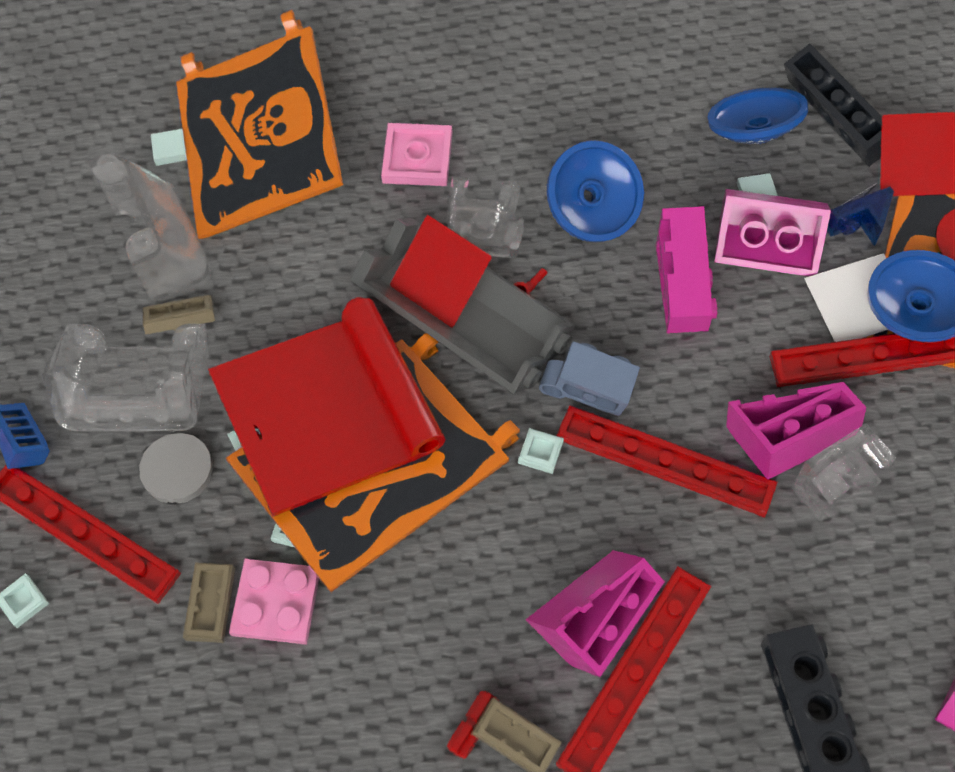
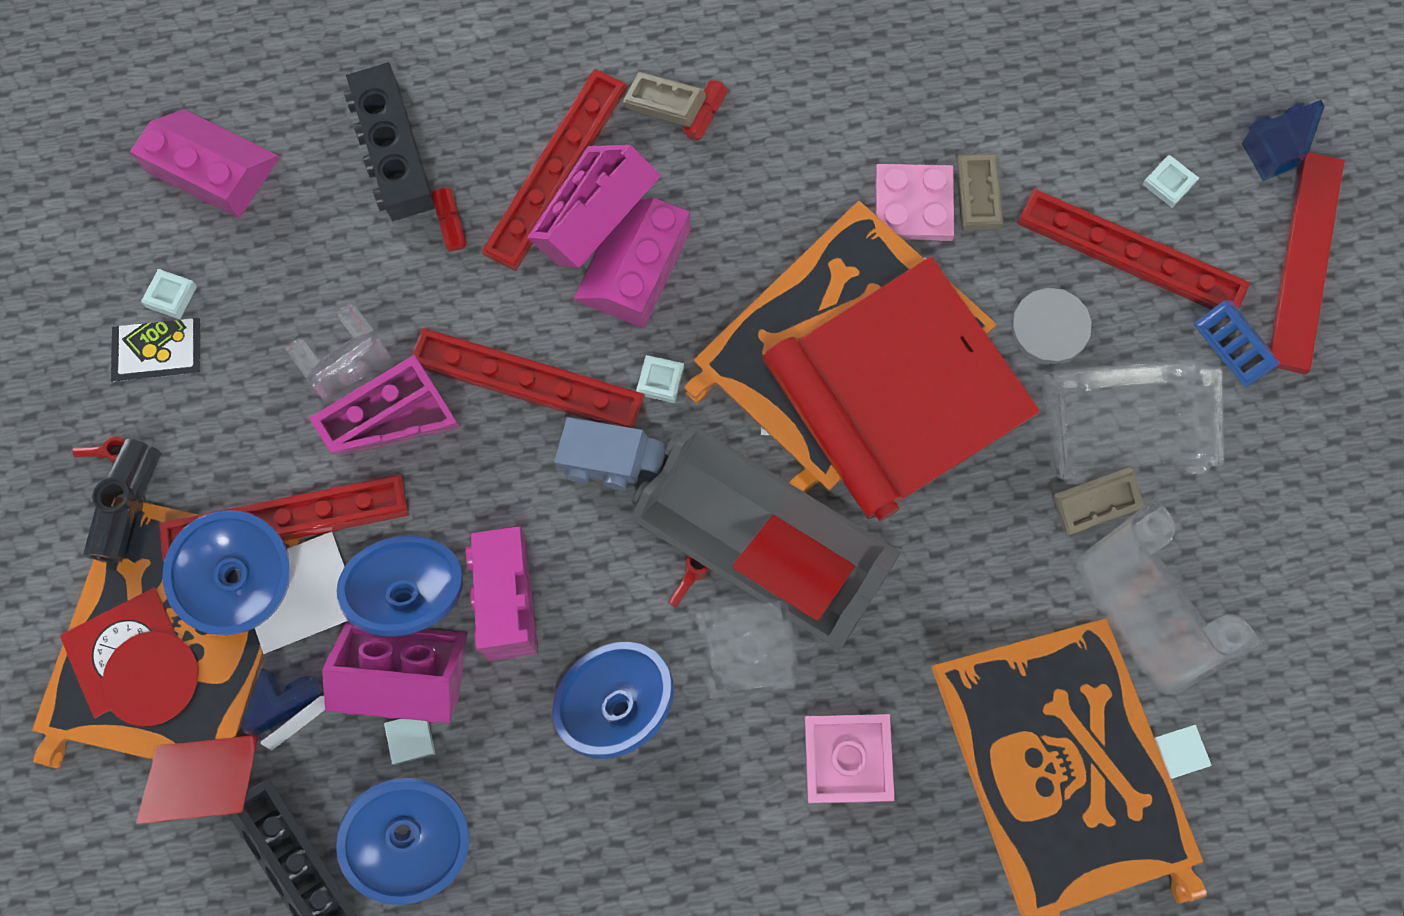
camera: 175 degrees right, 10 degrees up
(557, 551) = (635, 261): none -> dark pink slope
(748, 633) = (449, 219): none -> red piece
(796, 275) = (399, 586): none -> blue dish

